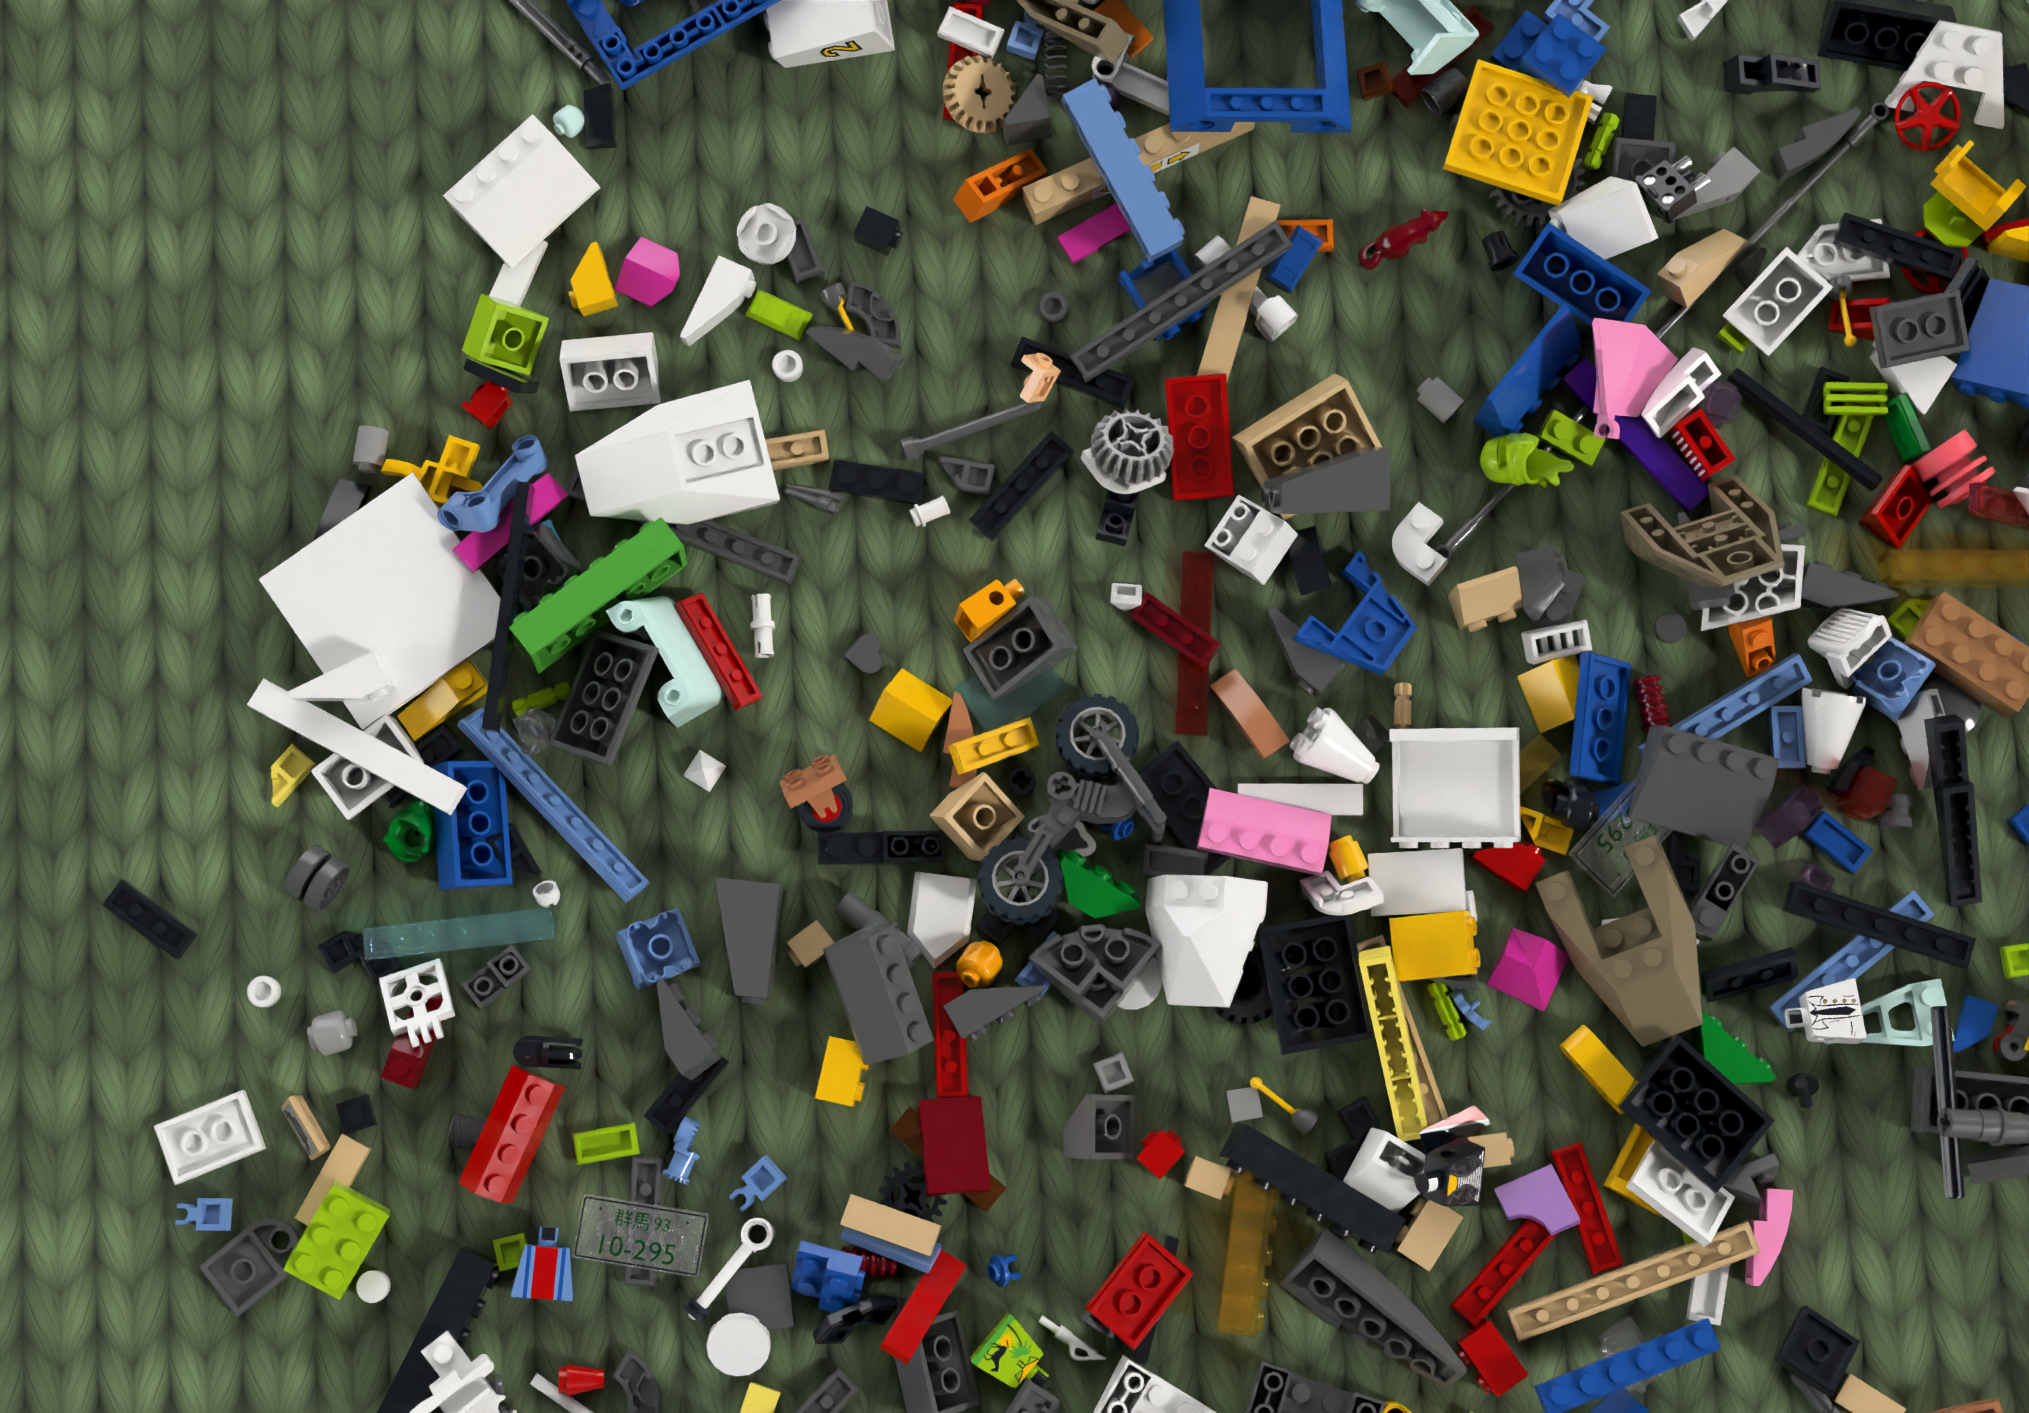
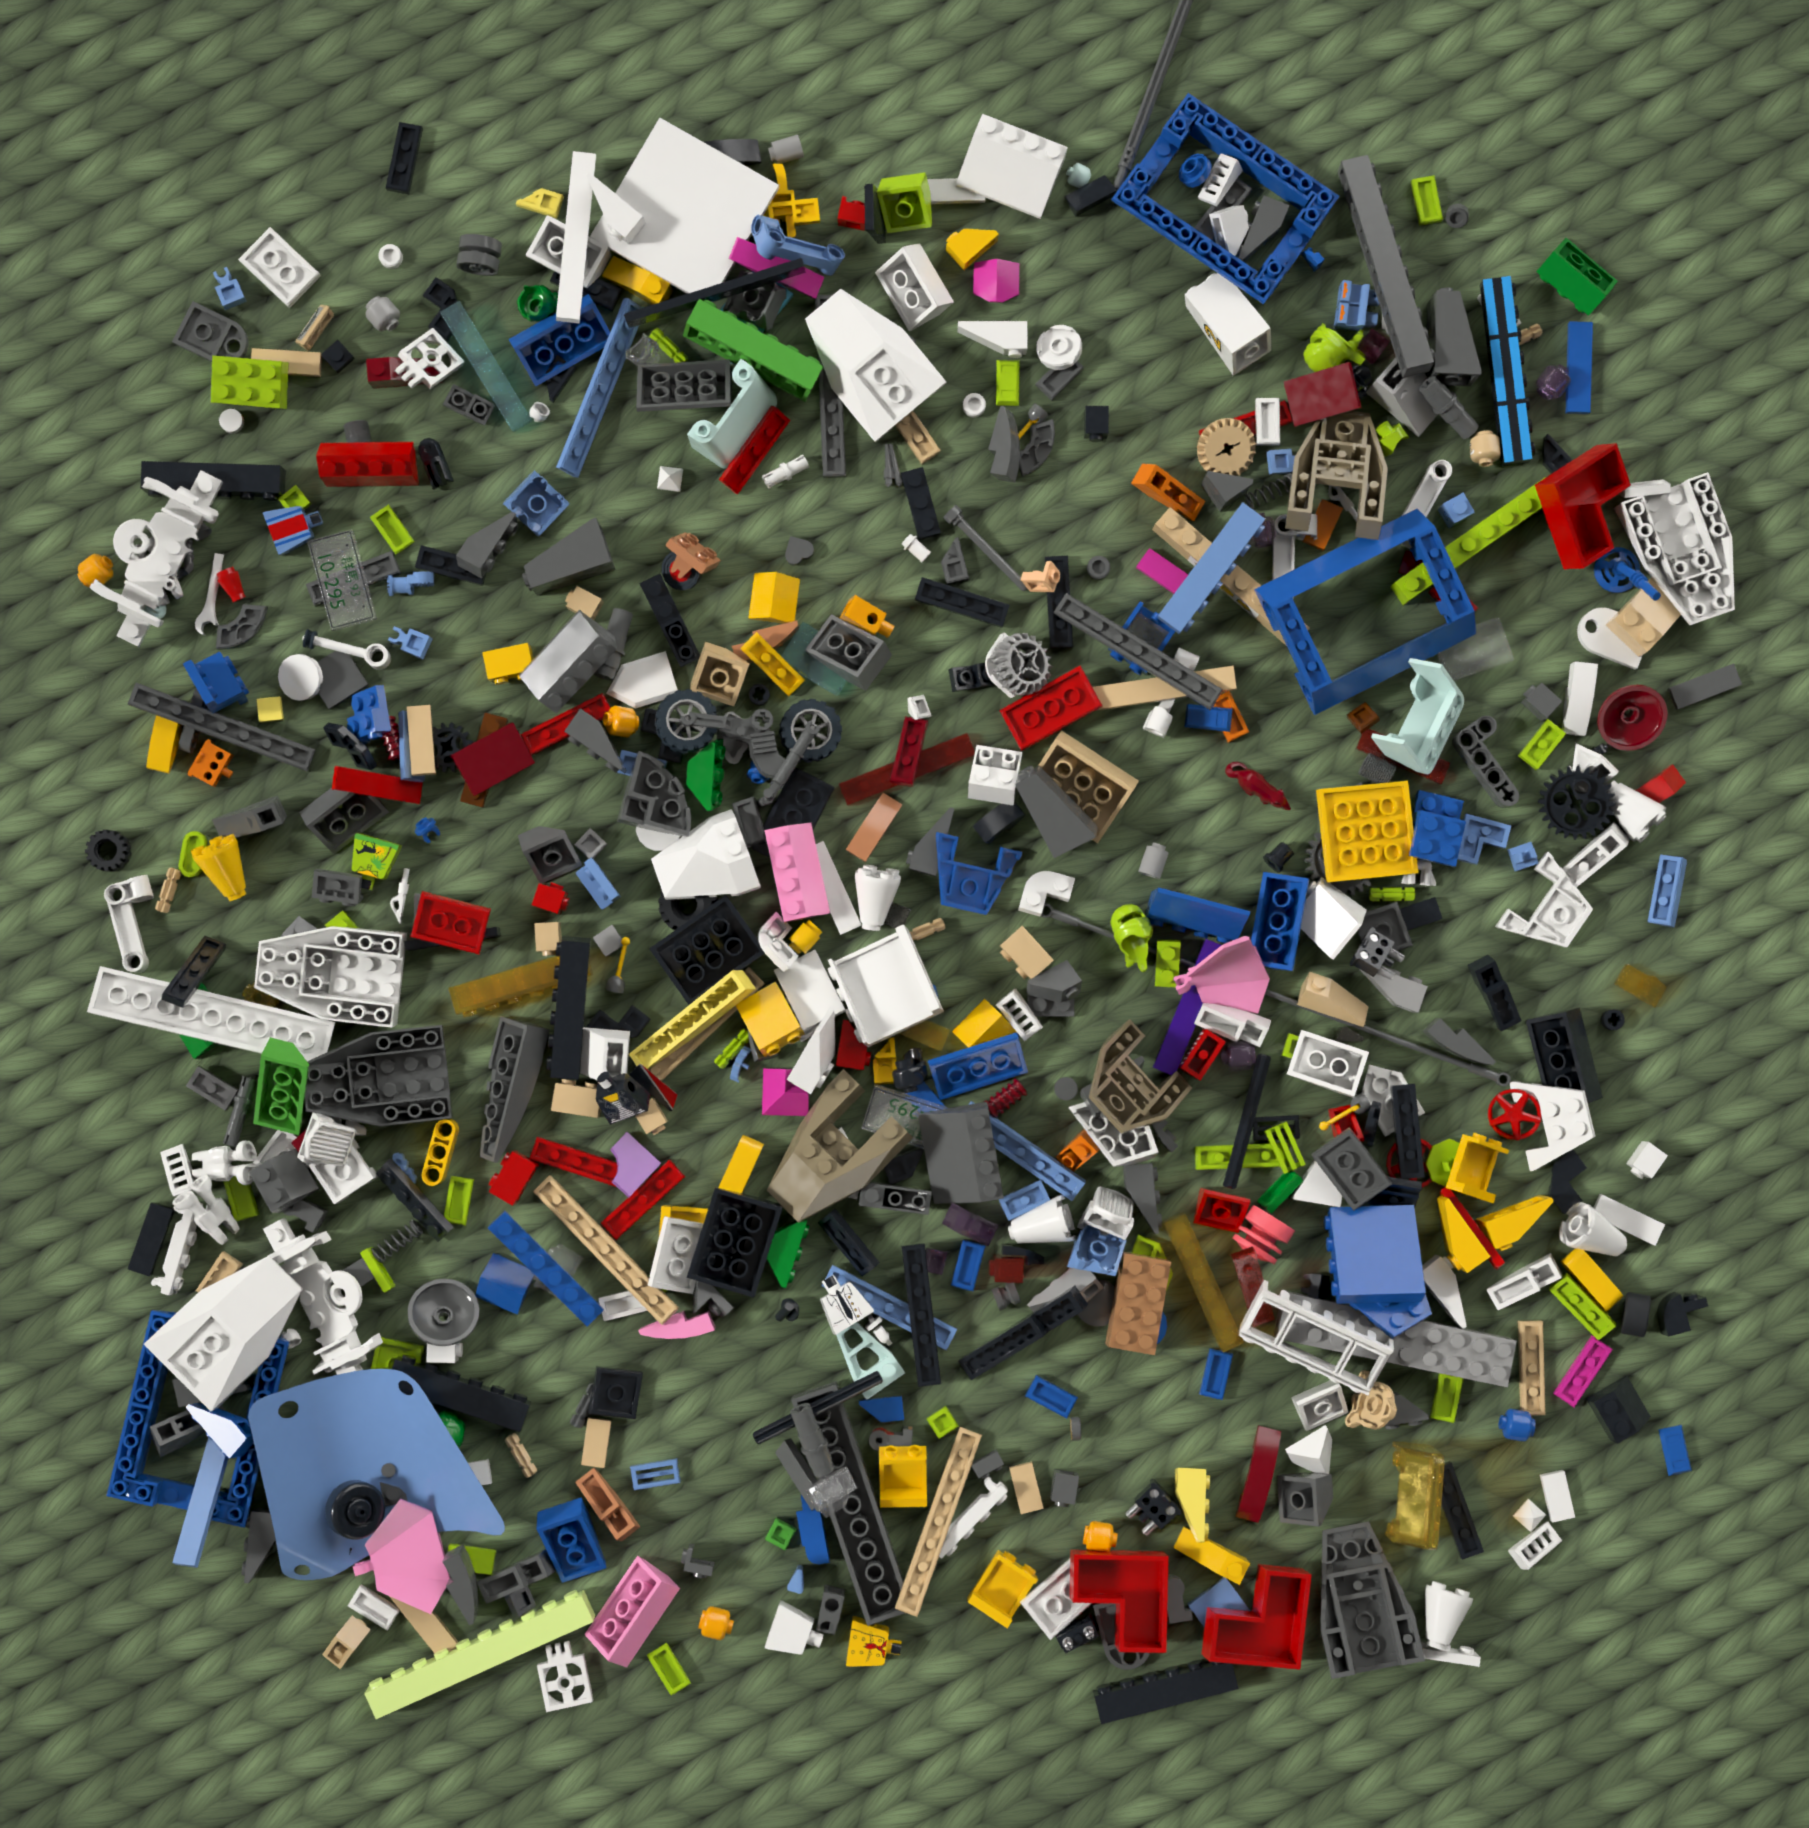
camera: 55 degrees right, 5 degrees up
(1168, 1085) = (597, 884): none -> medium blue bracket
(1505, 911) = (816, 1058): none -> white slope
(1867, 987) = (880, 1333): none -> white piece
(1868, 282) = (1371, 1124): none -> black tile
(1938, 1347) = (675, 1470): none -> medium blue tile

